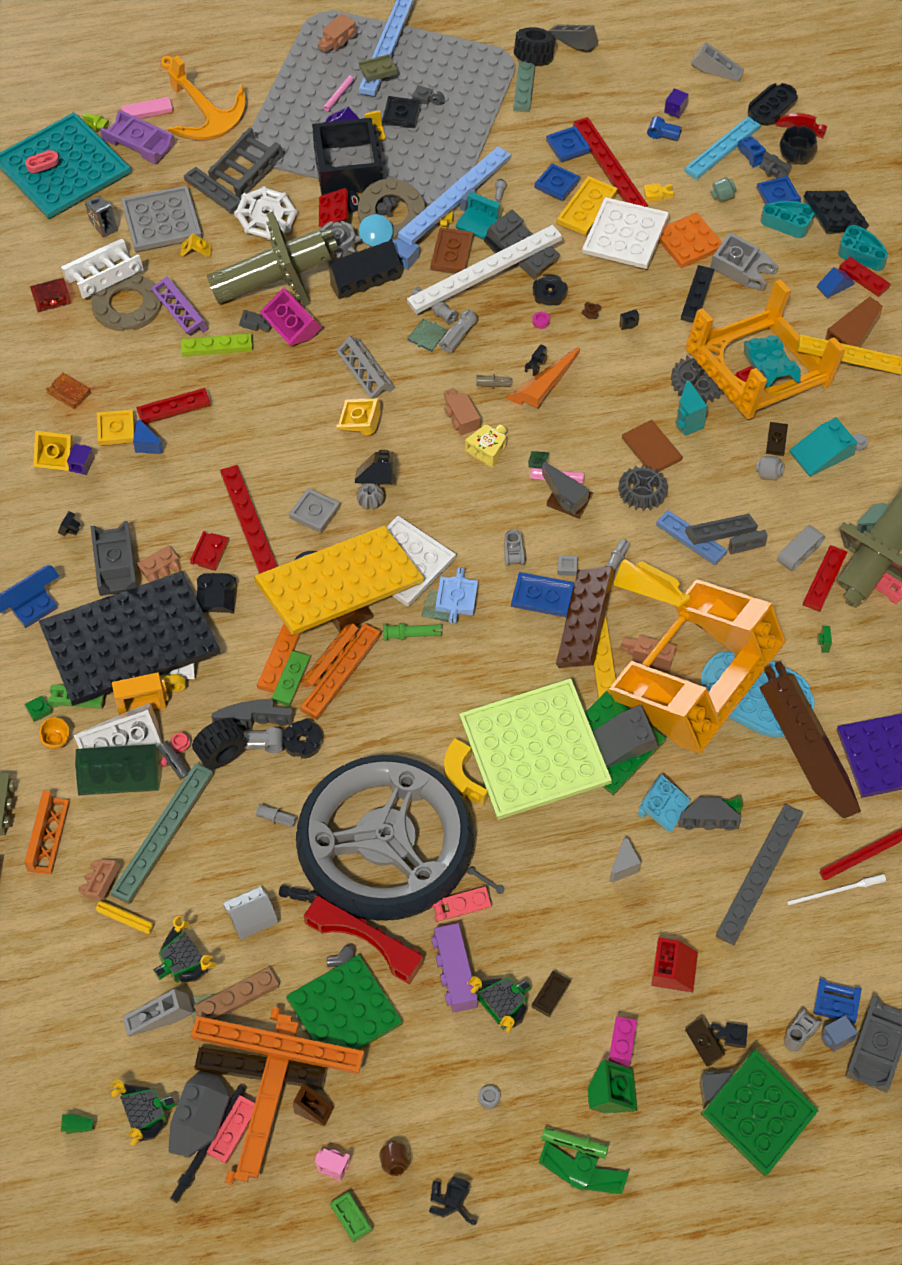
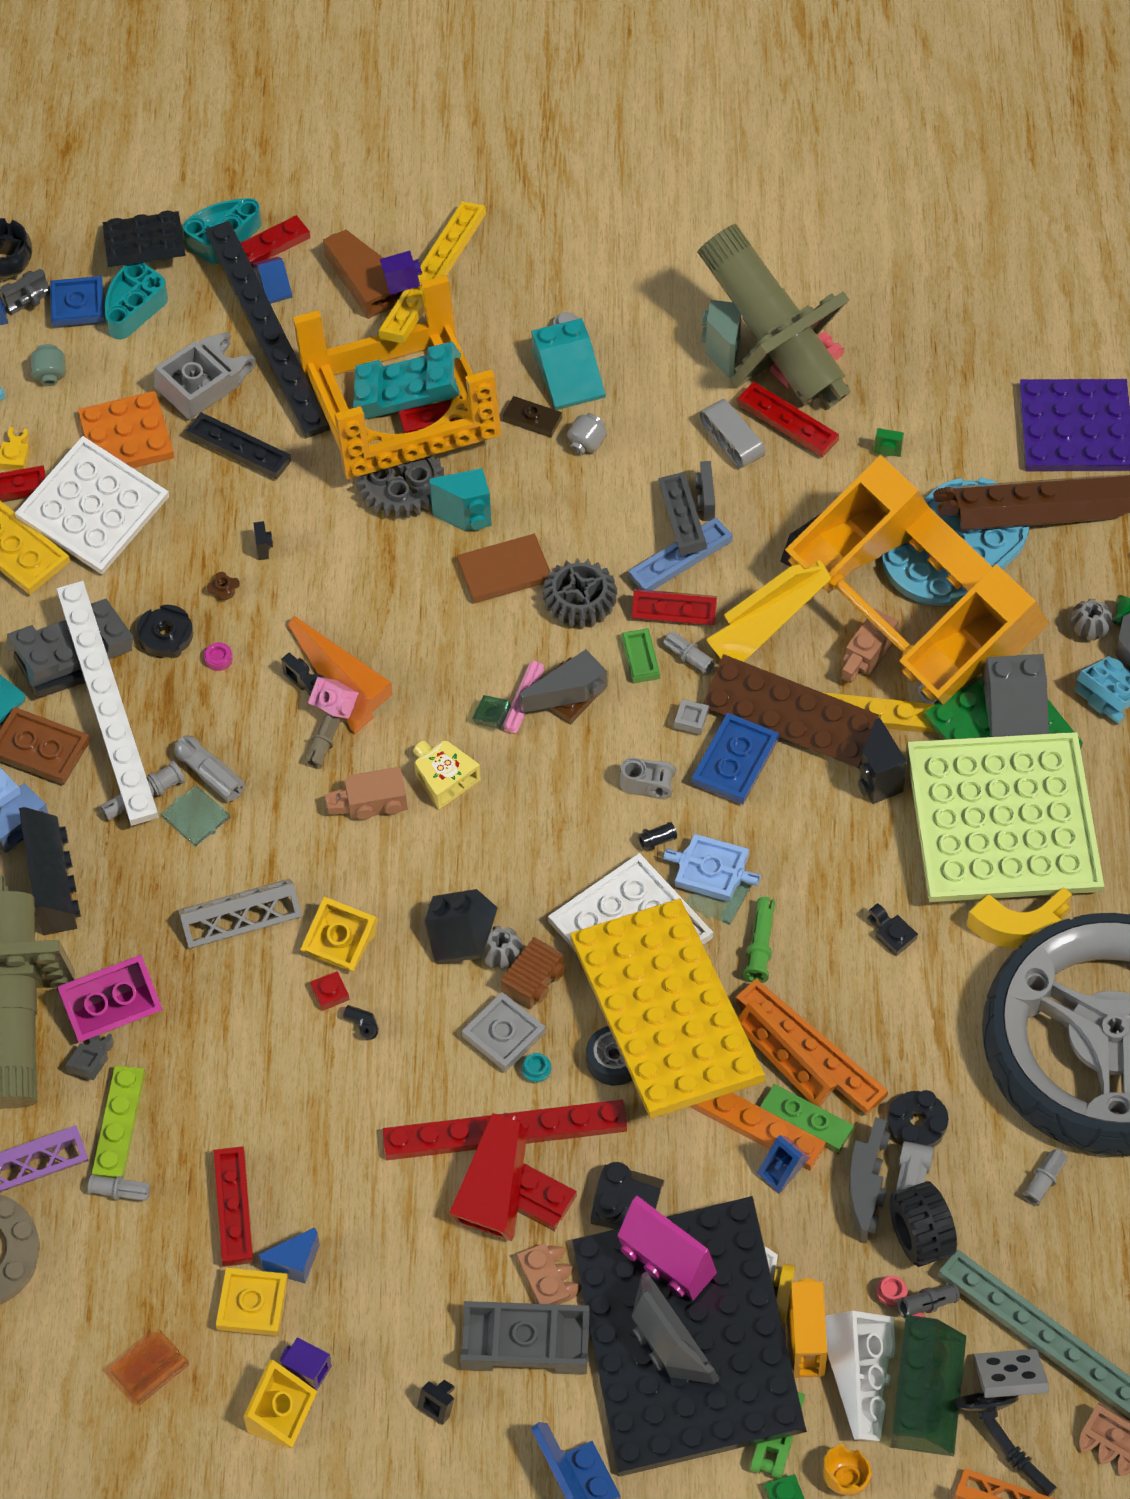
camera: 75 degrees left, 0 degrees up
(103, 803) = (988, 1411): none -> black dish
(119, 617) = (667, 1336): none -> dark grey wedge
(130, 811) = (1011, 1373): none -> light grey tile
(170, 607) = (665, 1250): none -> dark pink slope
(174, 352) = (118, 1188): none -> light grey axle
(209, 520) = (493, 1180): none -> red slope
(255, 666) = (782, 1163): none -> blue slope
(294, 532) = (536, 1067): none -> teal plate
(303, 445) = (366, 1021): none -> black arm
(324, 422) = (329, 990): none -> red plate
(357, 516) = (532, 973): none -> dark orange brick
(437, 705) = (893, 932): none -> black plate
(470, 560) = (659, 835): none -> black pin
(522, 376) = (333, 697): none -> bright pink brick
(555, 667) = (882, 765): none -> black slope
(608, 531) = (640, 655): none -> bright green tile
(648, 539) = (674, 606): none -> red plate
(715, 782) = (1091, 619): none -> light grey piece
(801, 276) = (267, 329): none -> black plate
(851, 335) = (401, 272): none -> dark purple brick

